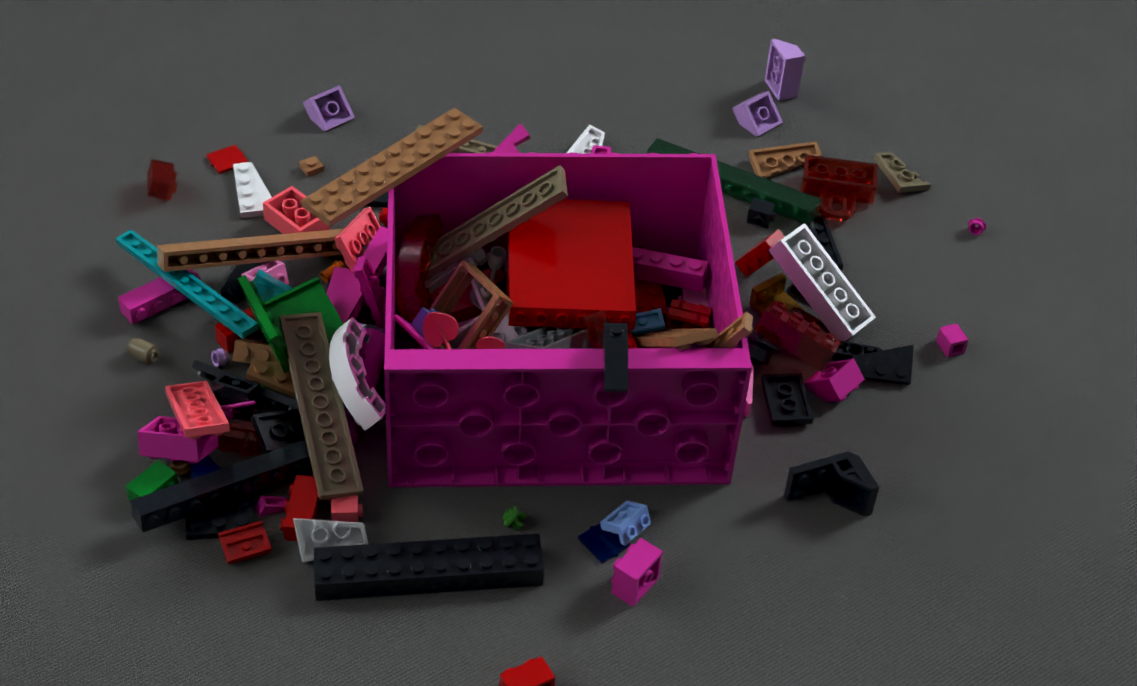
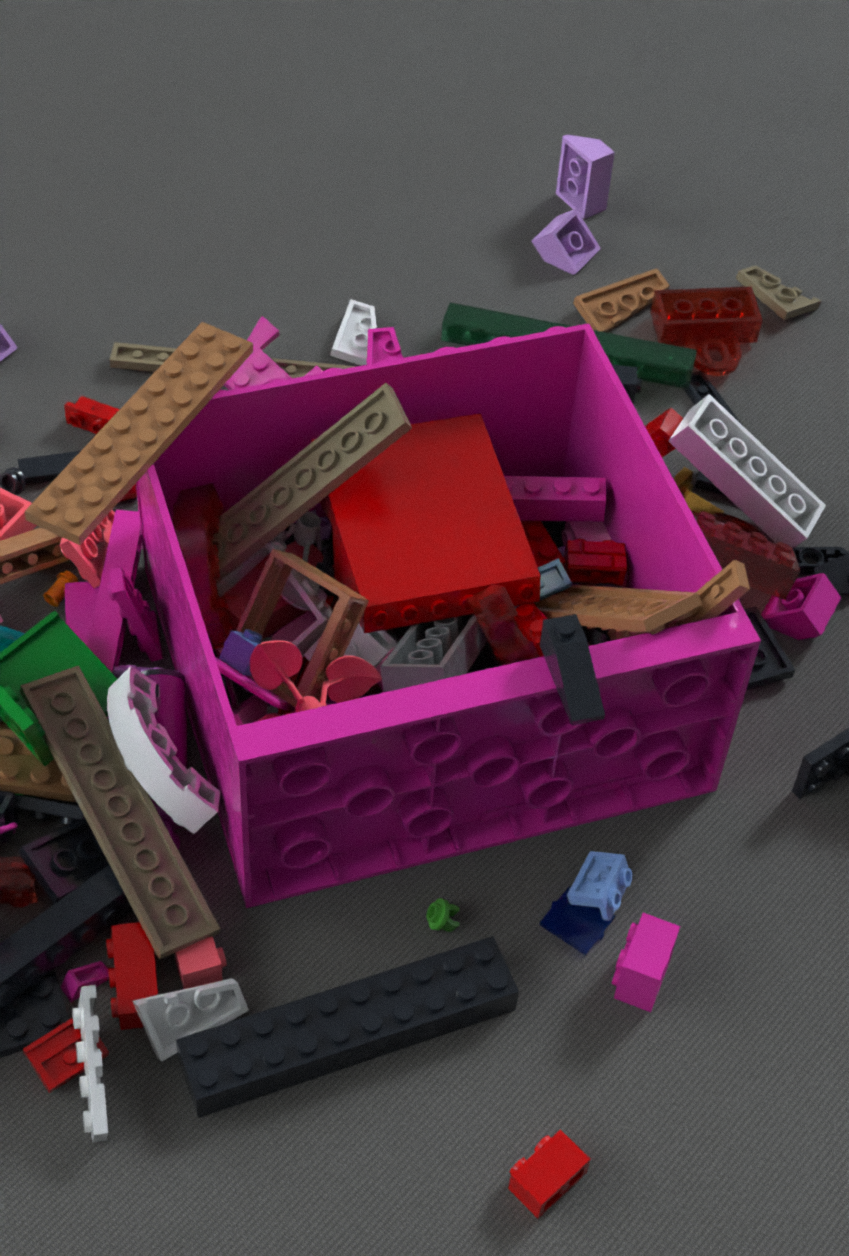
camera: 15 degrees left, 5 degrees up
(256, 543) = (90, 1085): none -> white wing

